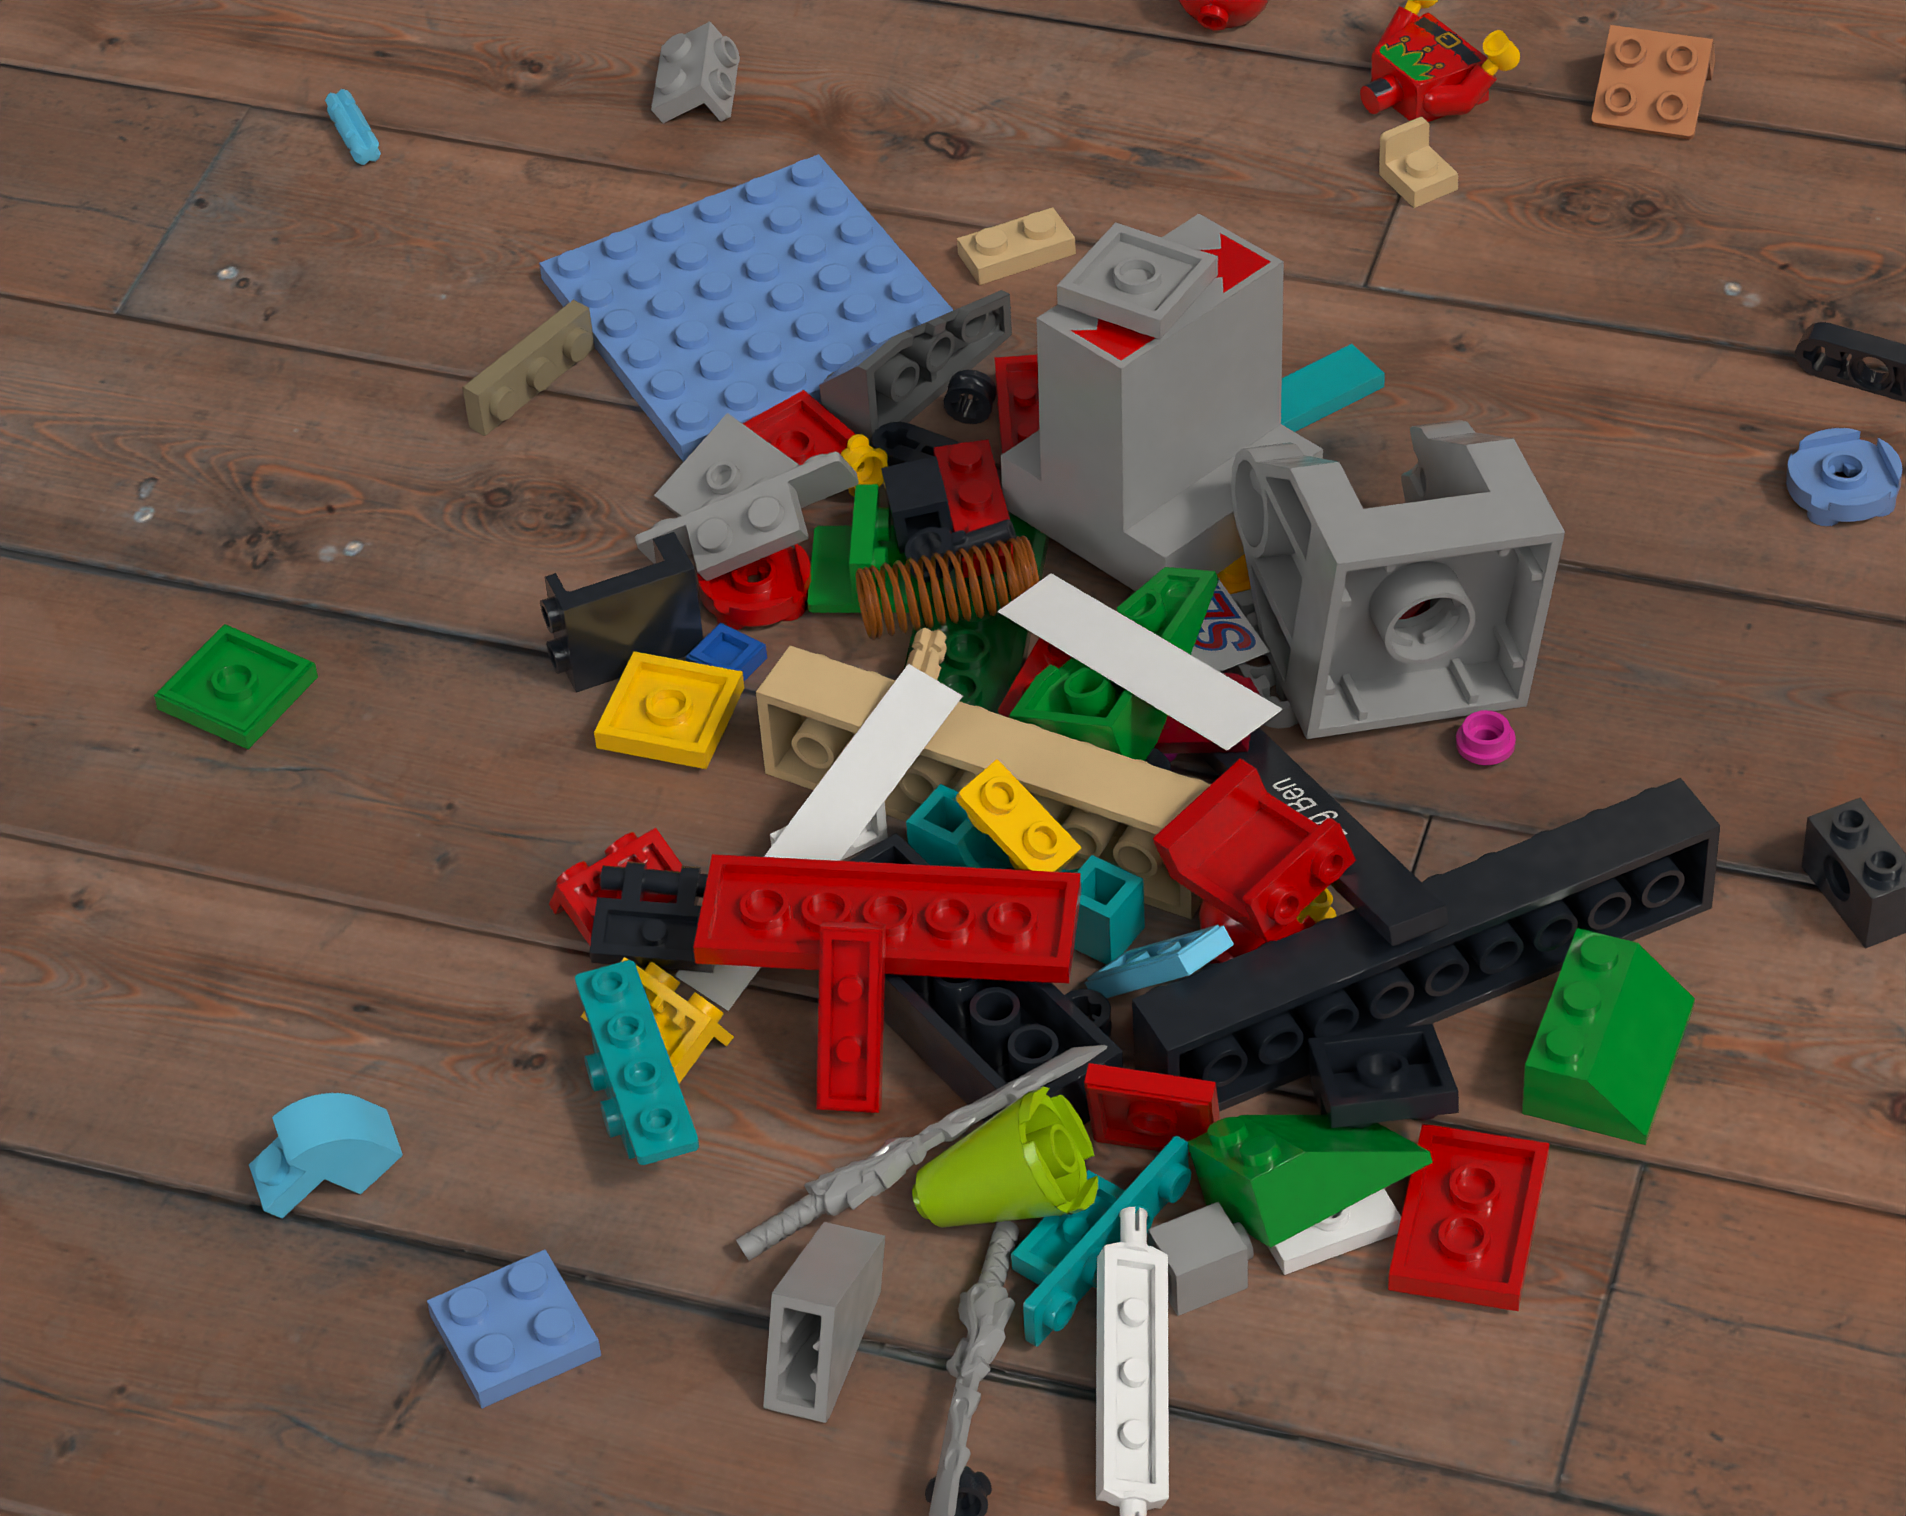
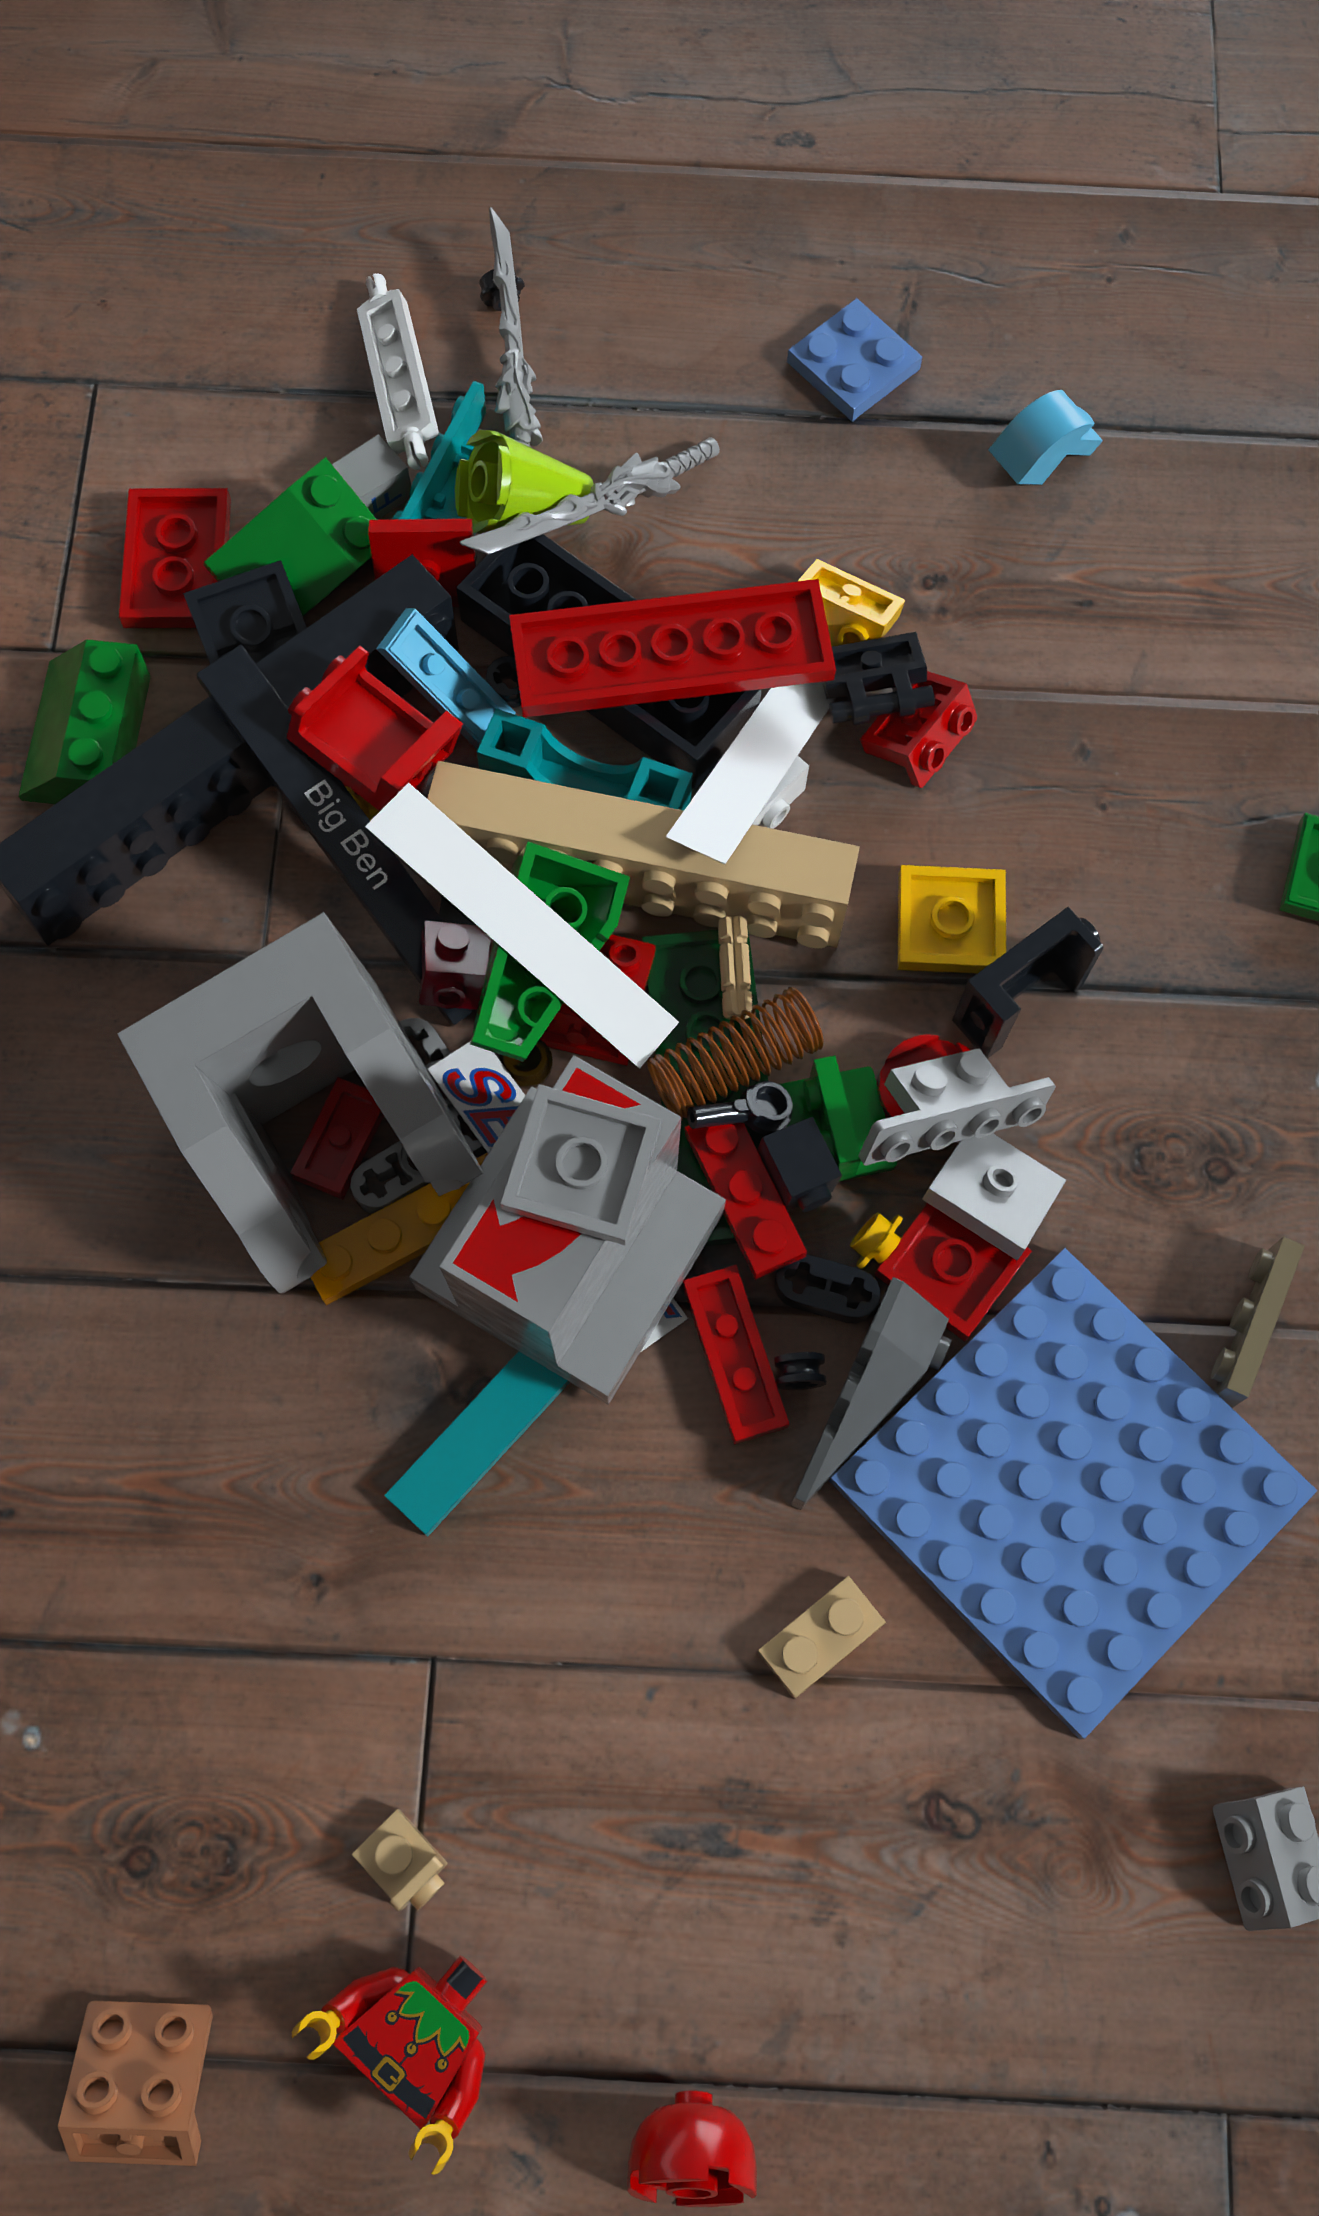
camera: 160 degrees right, 25 degrees up
(633, 1067) = (838, 530): teal bracket -> none
(729, 650) = (926, 1003): blue tile -> none
(821, 1319) = (630, 380): light grey slope -> none
(851, 1016) = (681, 582): red tile -> none
(1016, 821) = (592, 754): yellow bracket -> none

